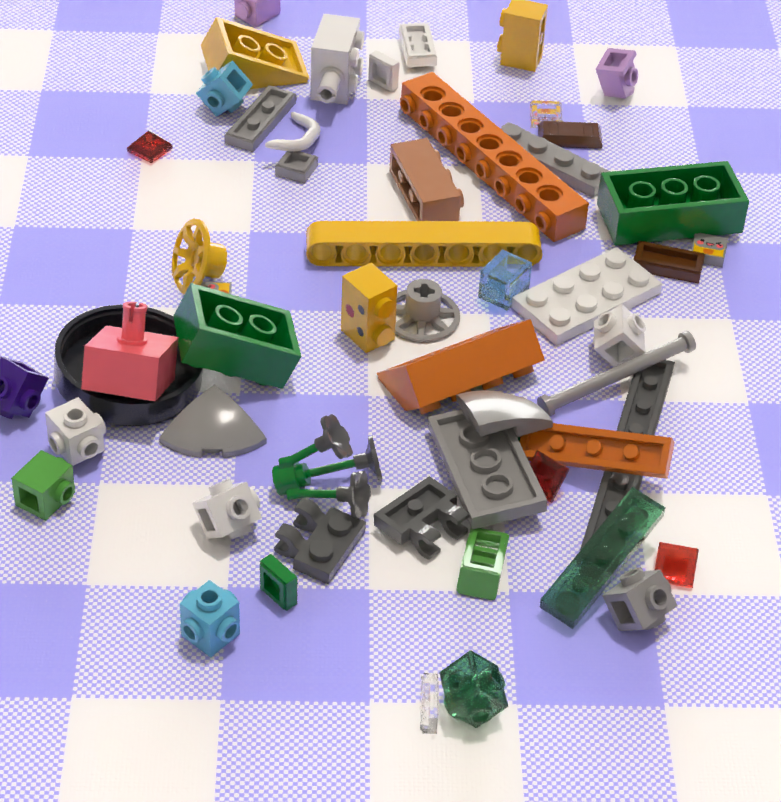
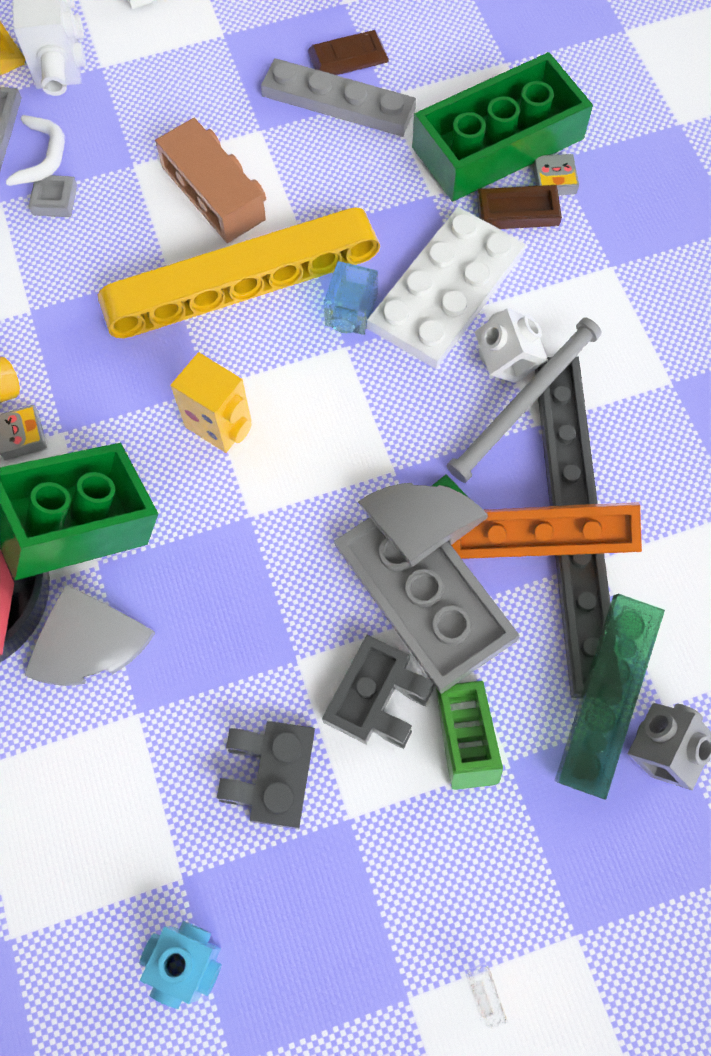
camera: 15 degrees left, 25 degrees up
(228, 510) = (147, 780): white brick -> none
(278, 582) = (243, 869): green tile -> none
(292, 477) = (251, 657): plant -> none
(383, 70) = (108, 24): white tile -> none
(424, 307) = (271, 369): light grey wheel -> none
(463, 366) = (346, 446): orange slope -> none
(473, 689) = (534, 965): clear green brick -> none
(494, 157) = (275, 115): orange brick -> none
(544, 111) = (310, 30): clear tile -> none
(549, 474) = (499, 580): clear red slope -> none
(677, 563) = (682, 659): clear red slope -> none

